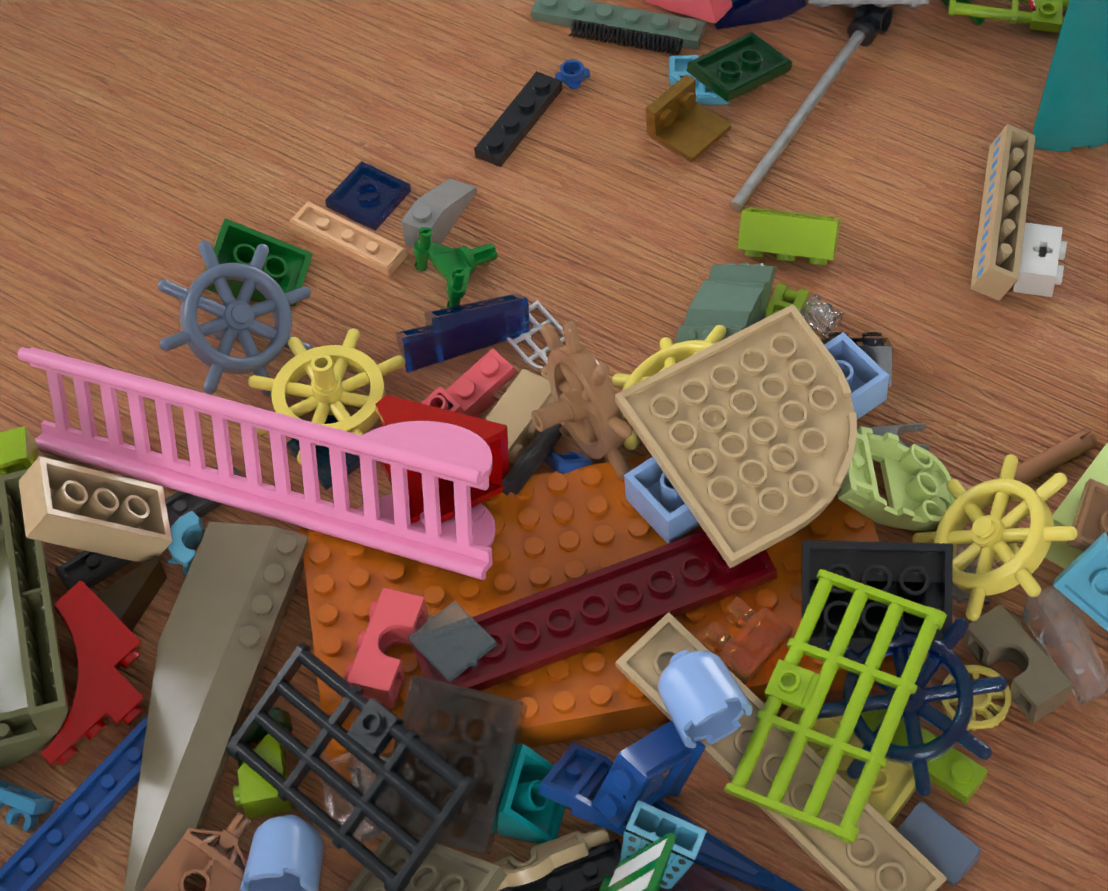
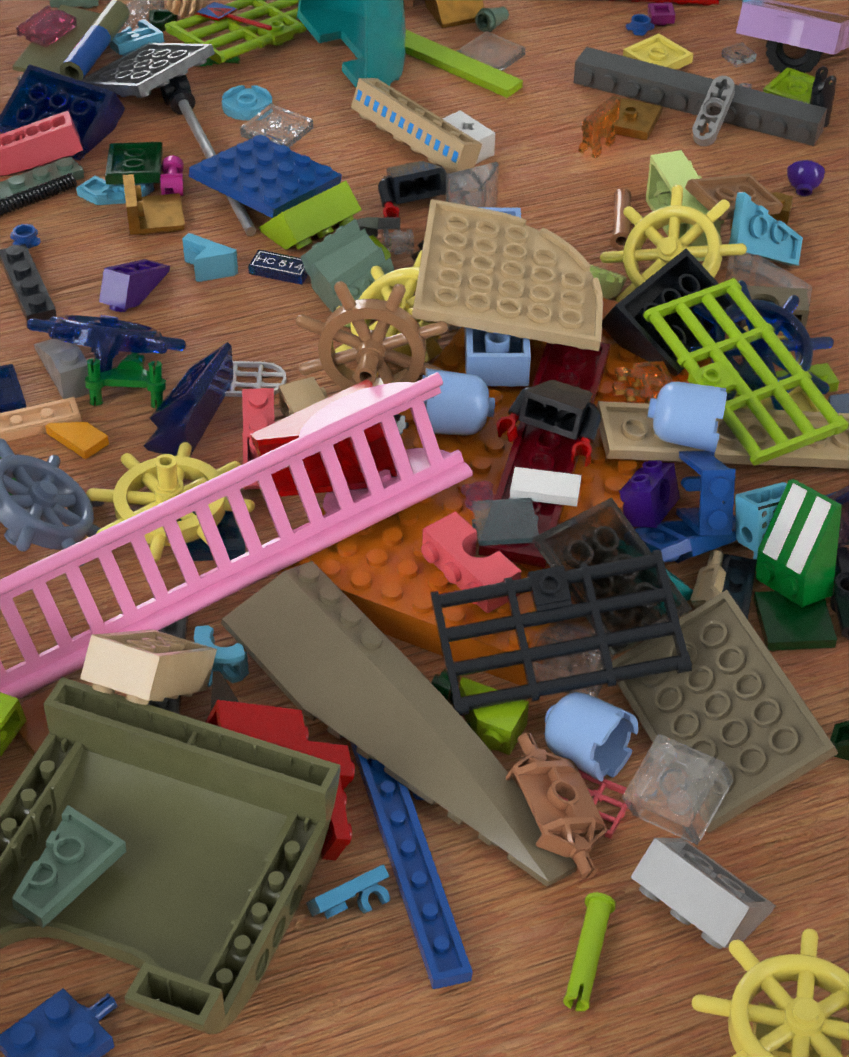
camera: 60 degrees left, 10 degrees down
(366, 287) = (79, 437): none -> light orange tile
(465, 216) = (106, 336): none -> clear blue piece
(483, 590) = (477, 492): none -> clear pink plate
(519, 643) = (545, 486): none -> white tile
(567, 504) = (461, 404): none -> light blue cylinder
(576, 180) = (130, 283): none -> dark purple slope
(613, 592) = (556, 409): none -> black torso
(619, 725) = (650, 494): none -> dark purple brick
(657, 208) = (209, 258): none -> medium azure slope
(702, 253) = (278, 267): none -> clear blue tile
(740, 111) = (172, 176): none -> dark pink leg
(813, 162) = (265, 175): none -> blue plate
(822, 284) = (372, 224): none -> dark grey slope
(900, 119) = (278, 125): none -> clear plate
(912, 269) = (410, 183): none -> black torso
(921, 72) = (245, 103): none -> medium azure tile
(930, 329) = (474, 186): none -> clear slope

